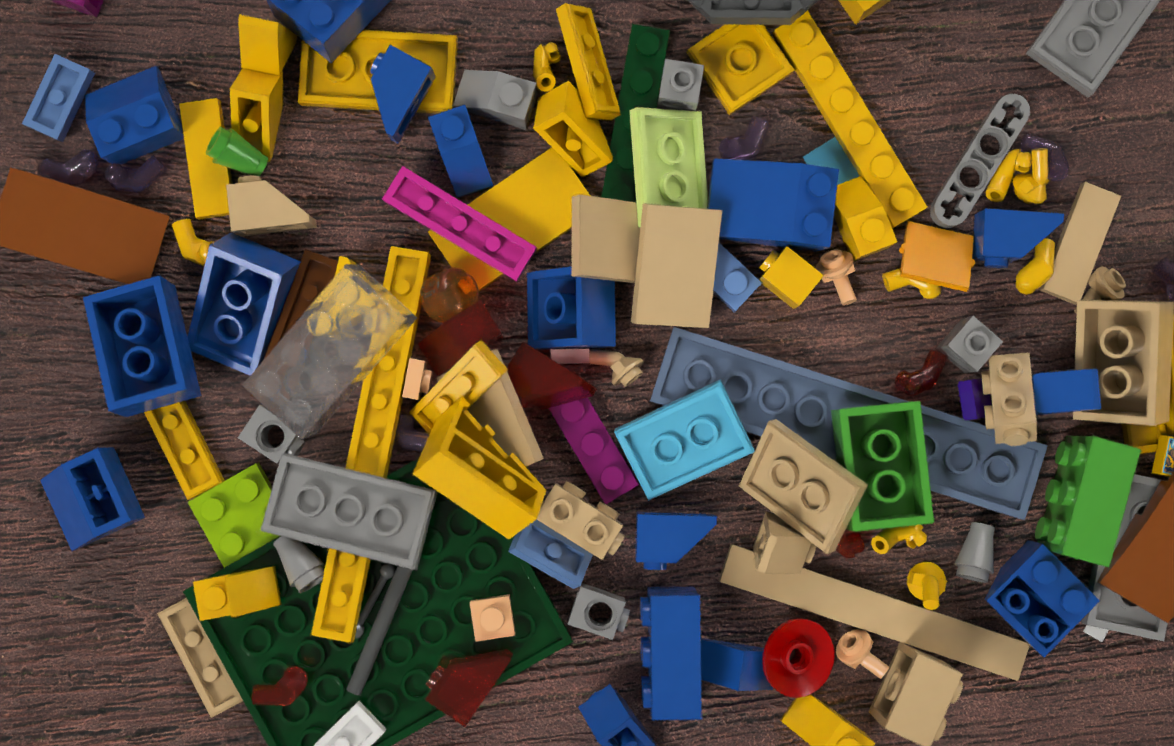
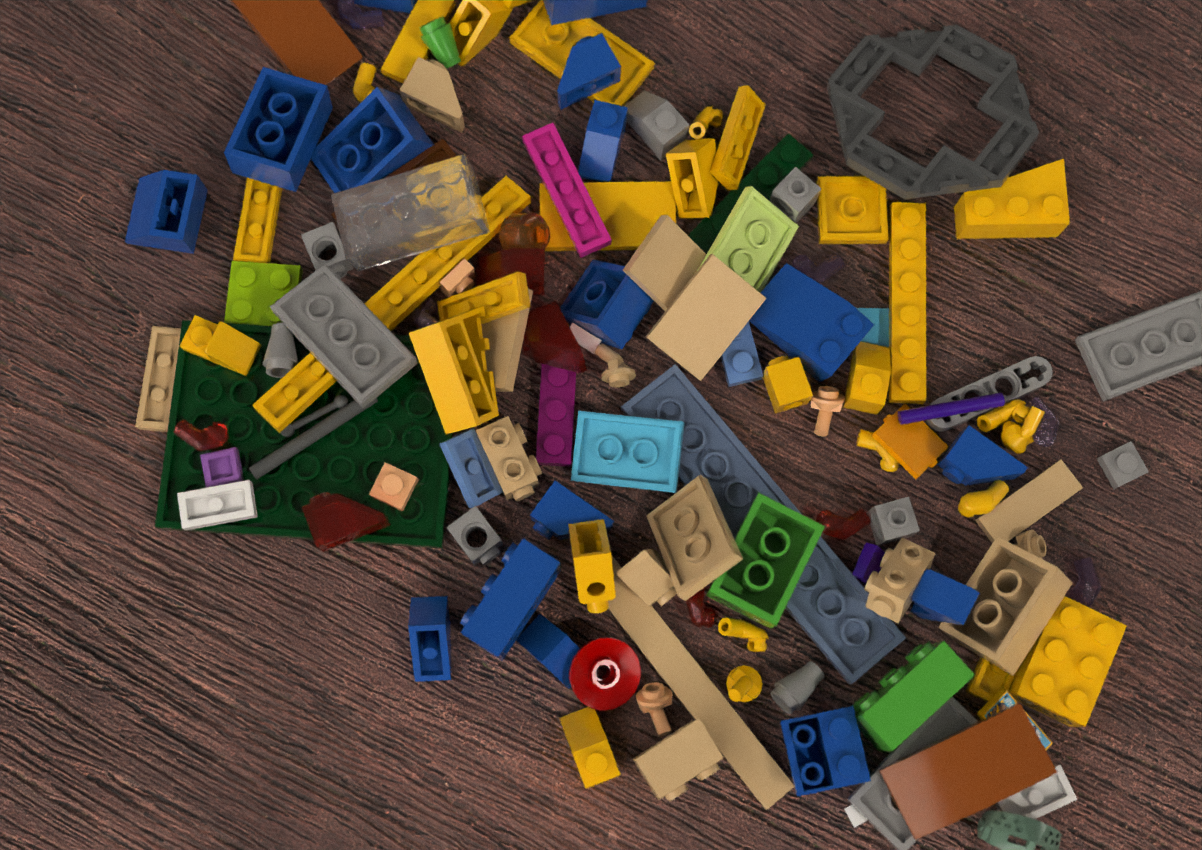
camera: 30 degrees right, 10 degrees down
(322, 706) = (222, 467): none -> medium lavender tile
(735, 584) = (592, 564): none -> yellow torso
(957, 201) = (951, 408): none -> dark purple bar
(1143, 149) = (1122, 465): none -> light grey plate

